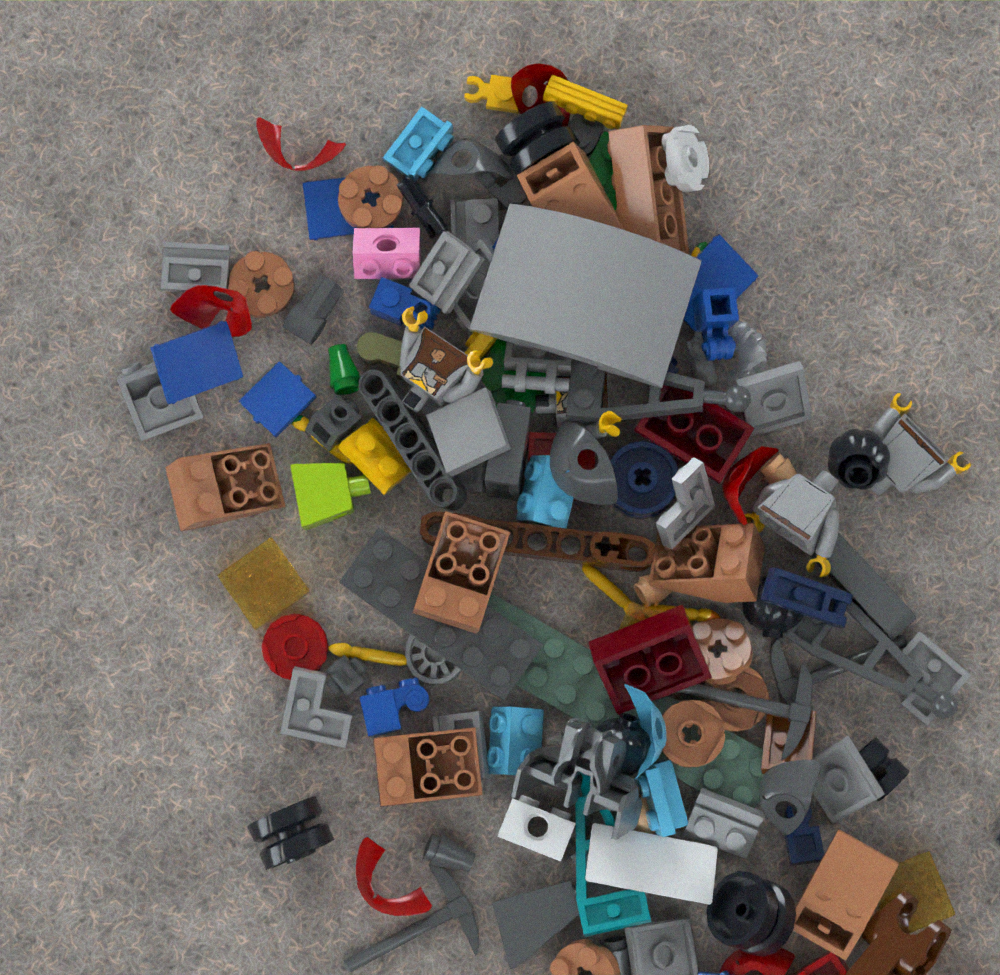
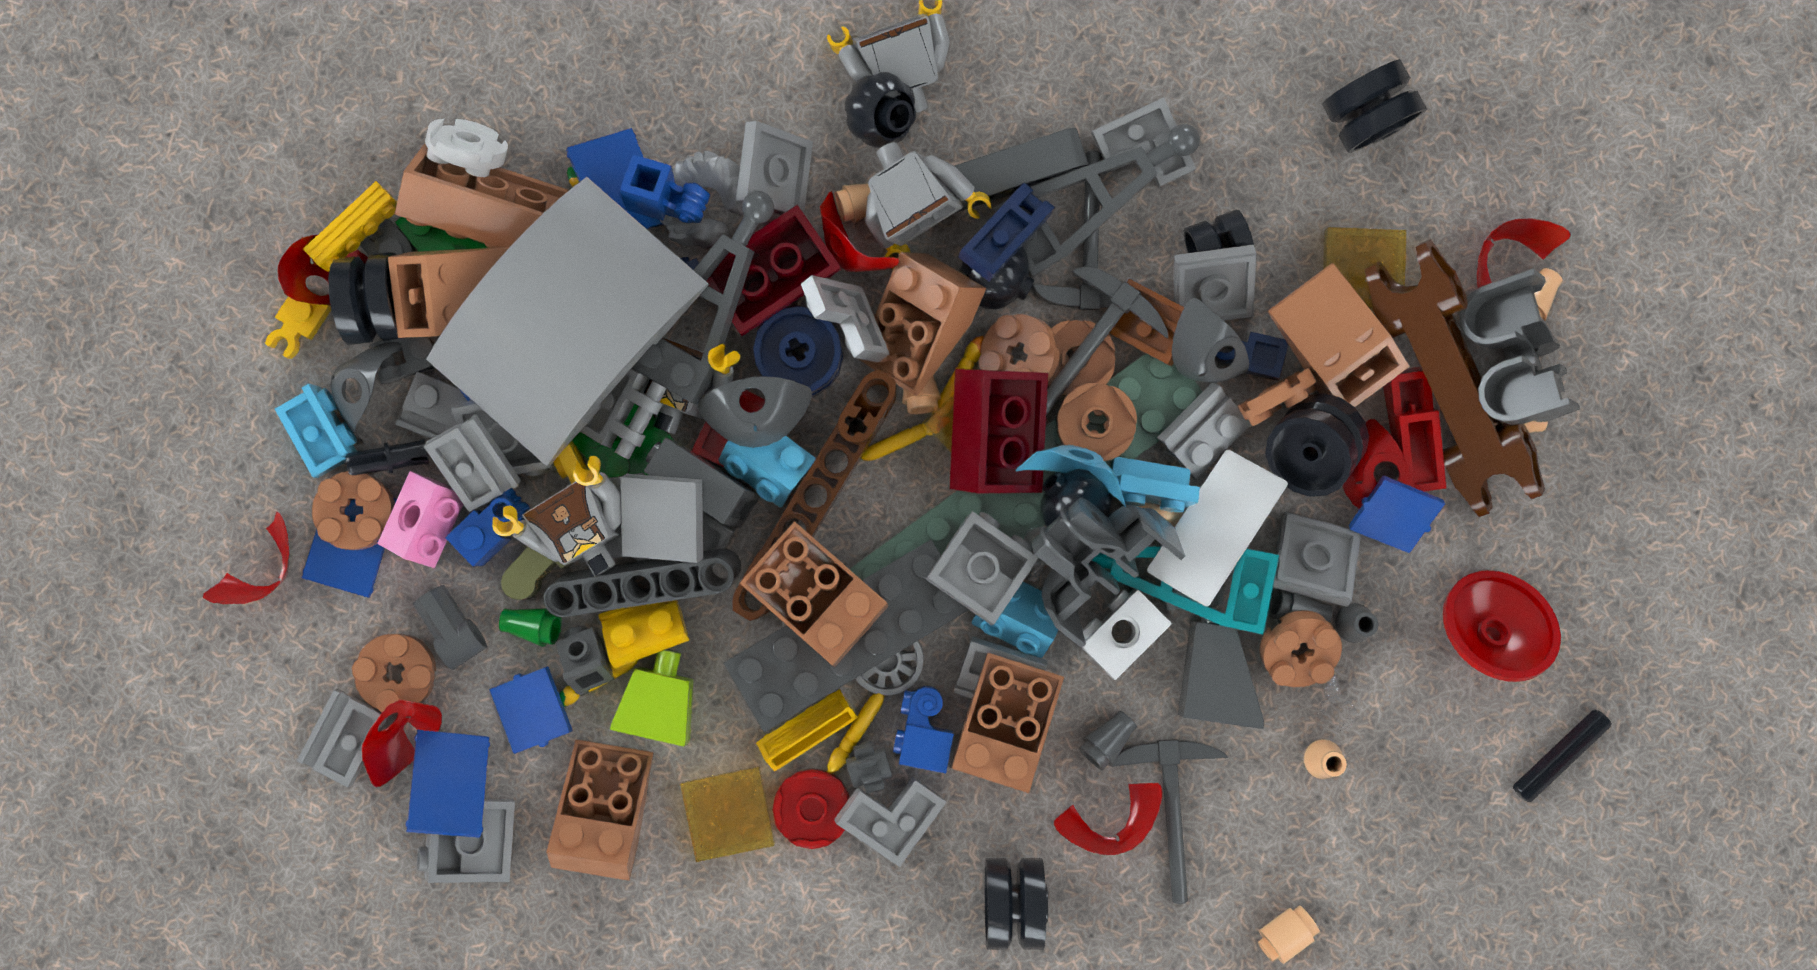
camera: 70 degrees left, 5 degrees up
(354, 615) = (806, 730): none -> yellow piece
(539, 692) = (982, 566): none -> light grey plate
(775, 868) = (1288, 390): none -> nougat plate

